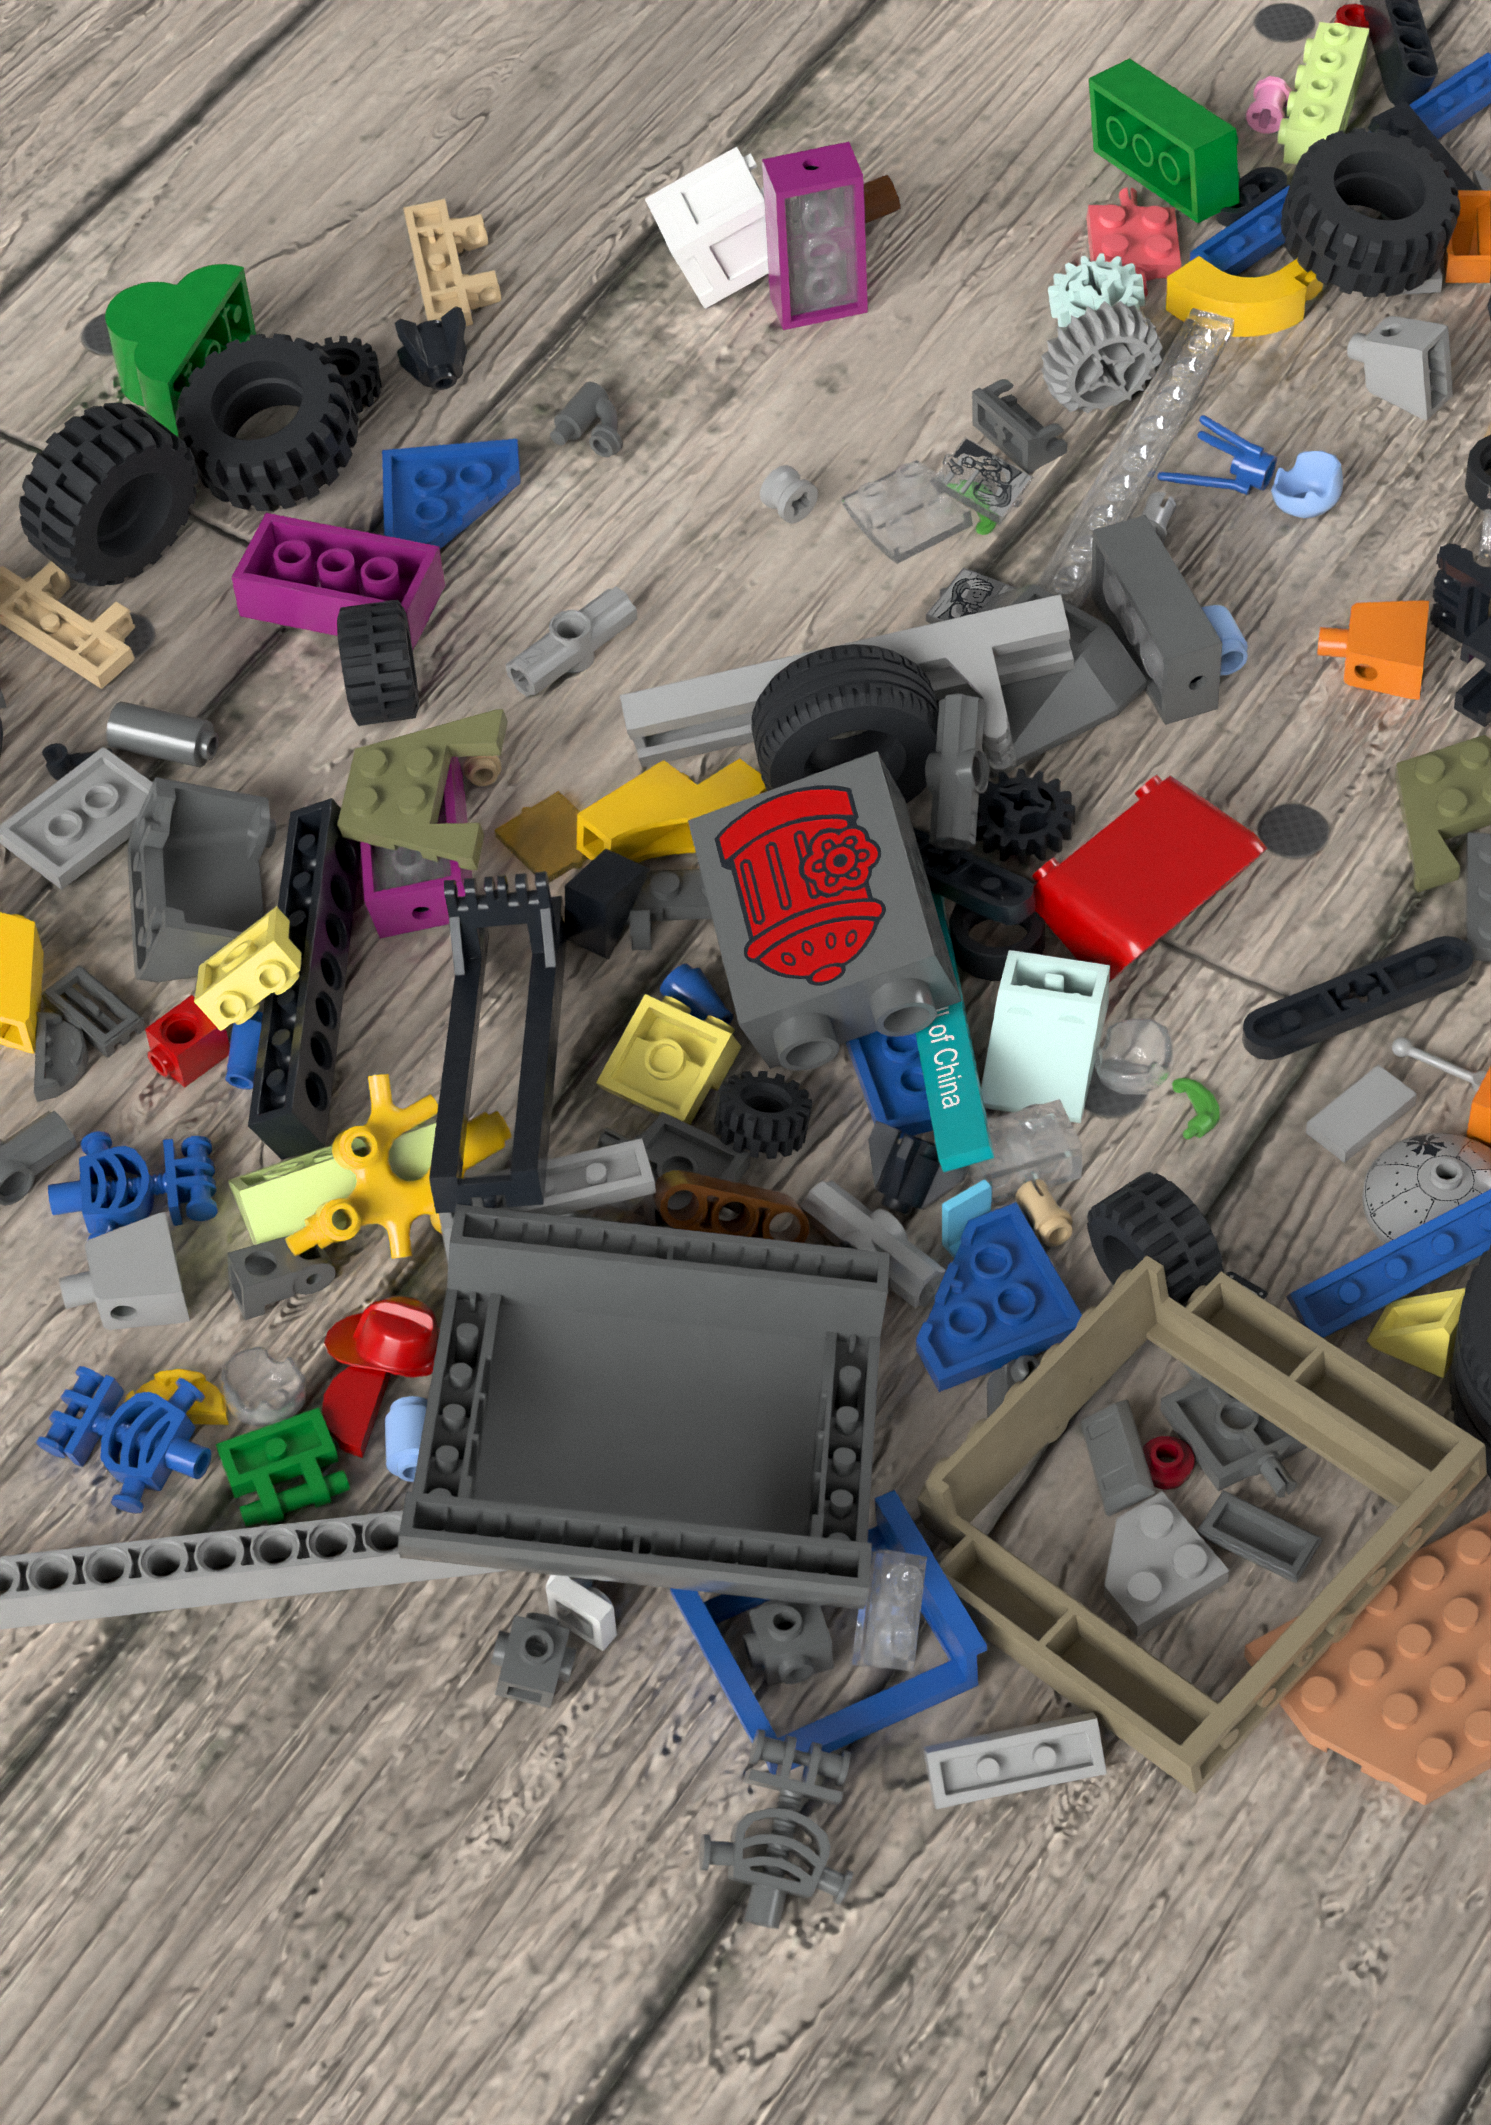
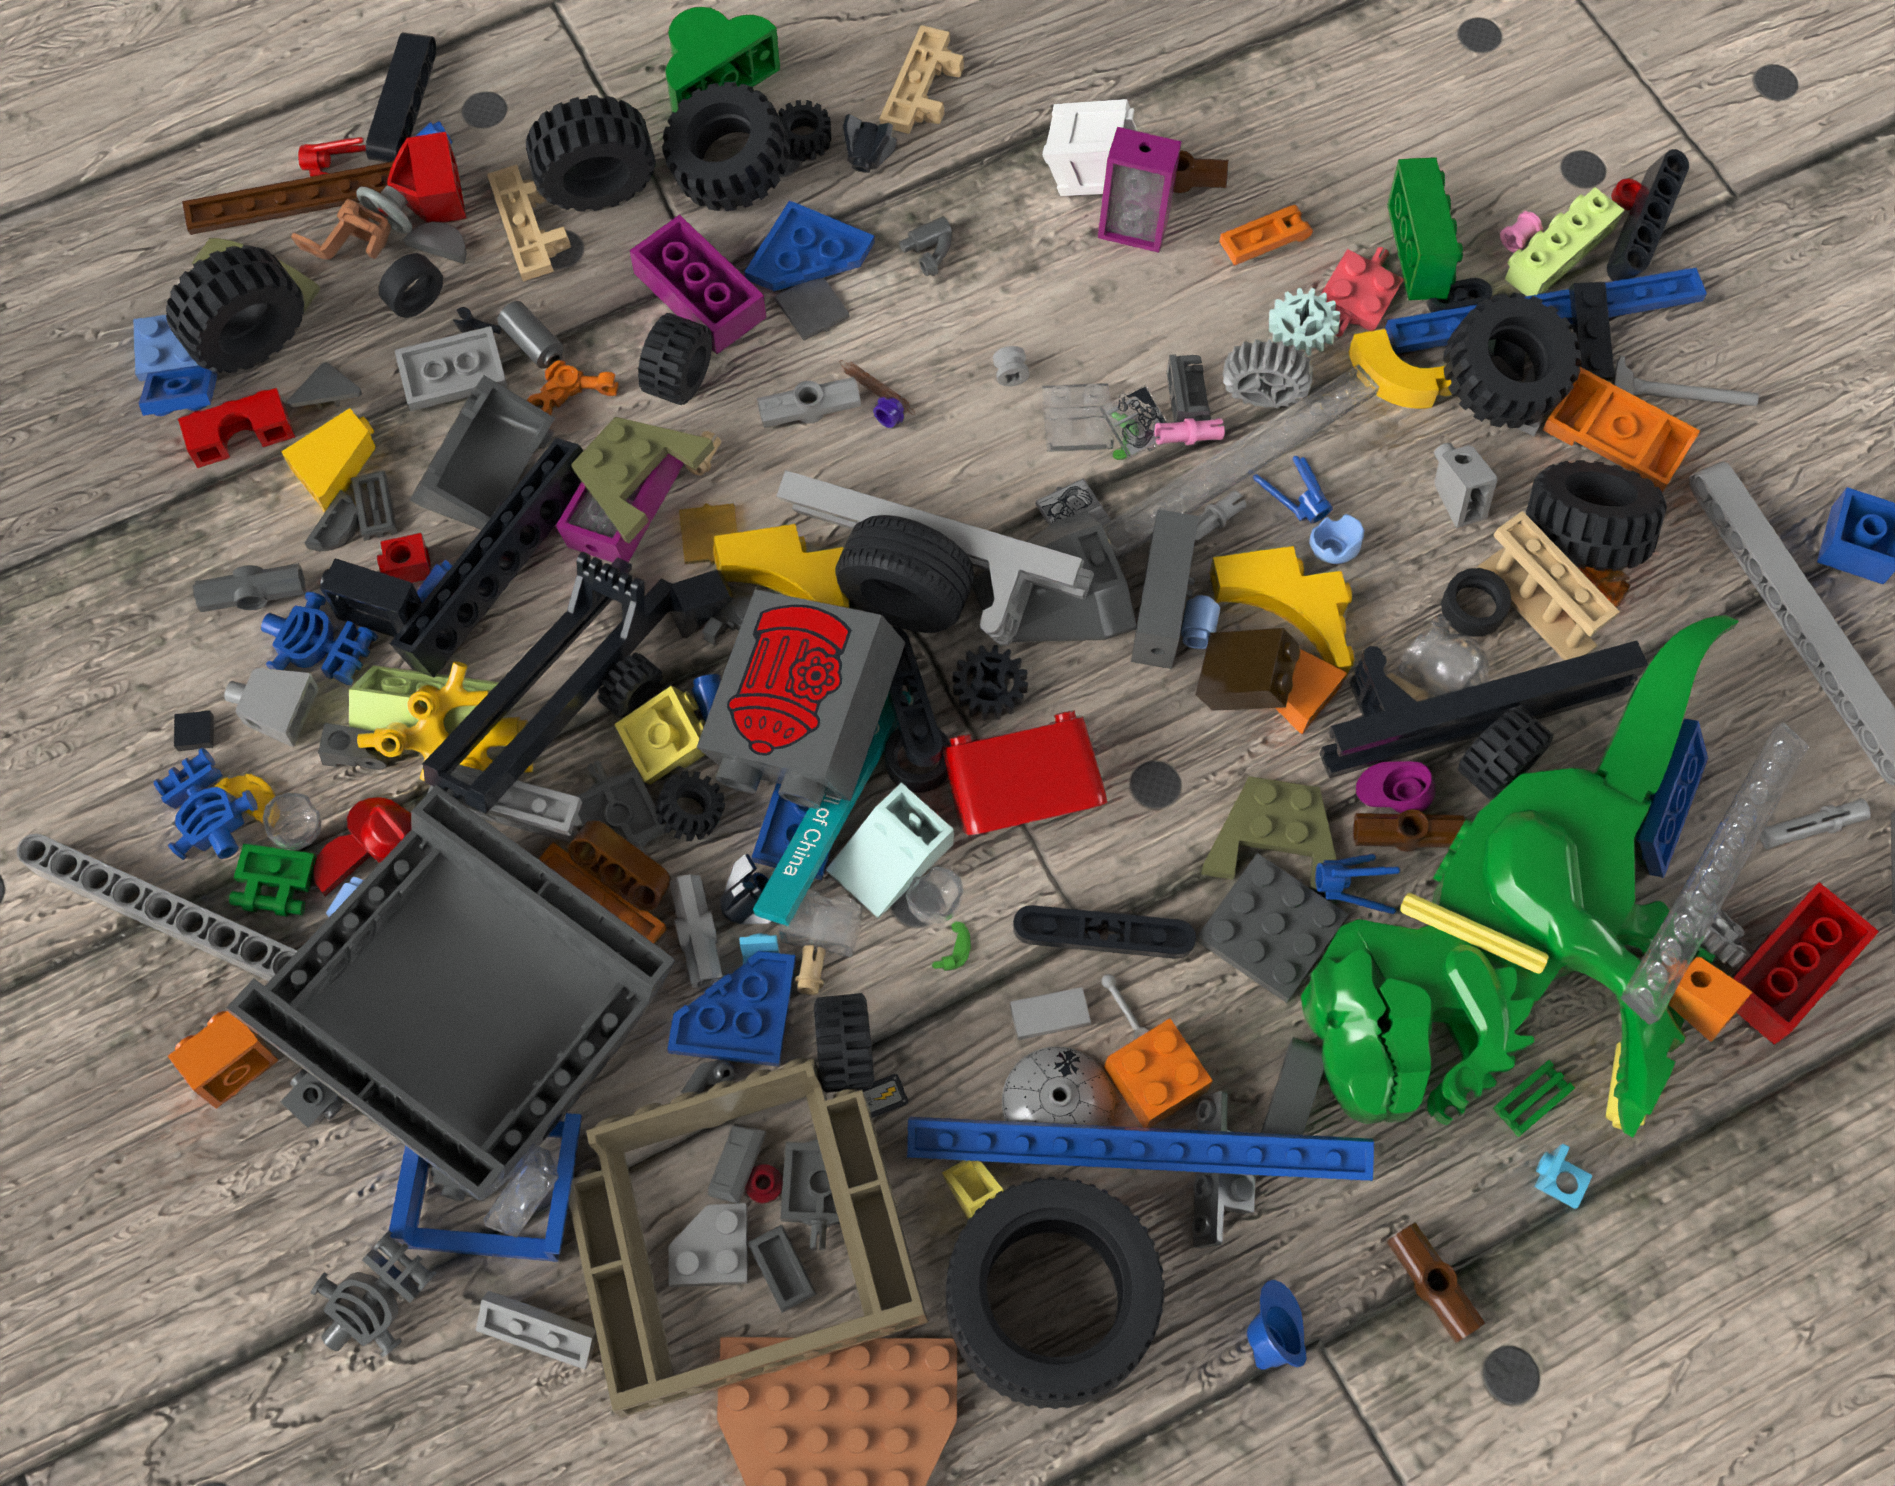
camera: 25 degrees right, 15 degrees up
(43, 1365) = (193, 730): none -> black tile
(178, 1067) = (369, 597): none -> black window
(246, 761) = (568, 381): none -> orange piece
(248, 971) = (451, 539): light yellow plate -> none
(381, 1676) = (222, 1058): none -> orange brick
(492, 551) = (812, 307): none -> flat silver piece
(589, 1025) = (629, 685): none -> black tyre
(647, 592) = (873, 379): none -> dark orange piece
(676, 608) = (889, 412): none -> dark purple plate
(957, 772) = (945, 643): dark grey piece -> none
(980, 236) = (1265, 234): none -> orange plate
(1051, 462) = (1189, 431): none -> bright pink pin
(1275, 562) = (1277, 583): none -> yellow arch
(1317, 648) = (1248, 669): none -> dark brown brick

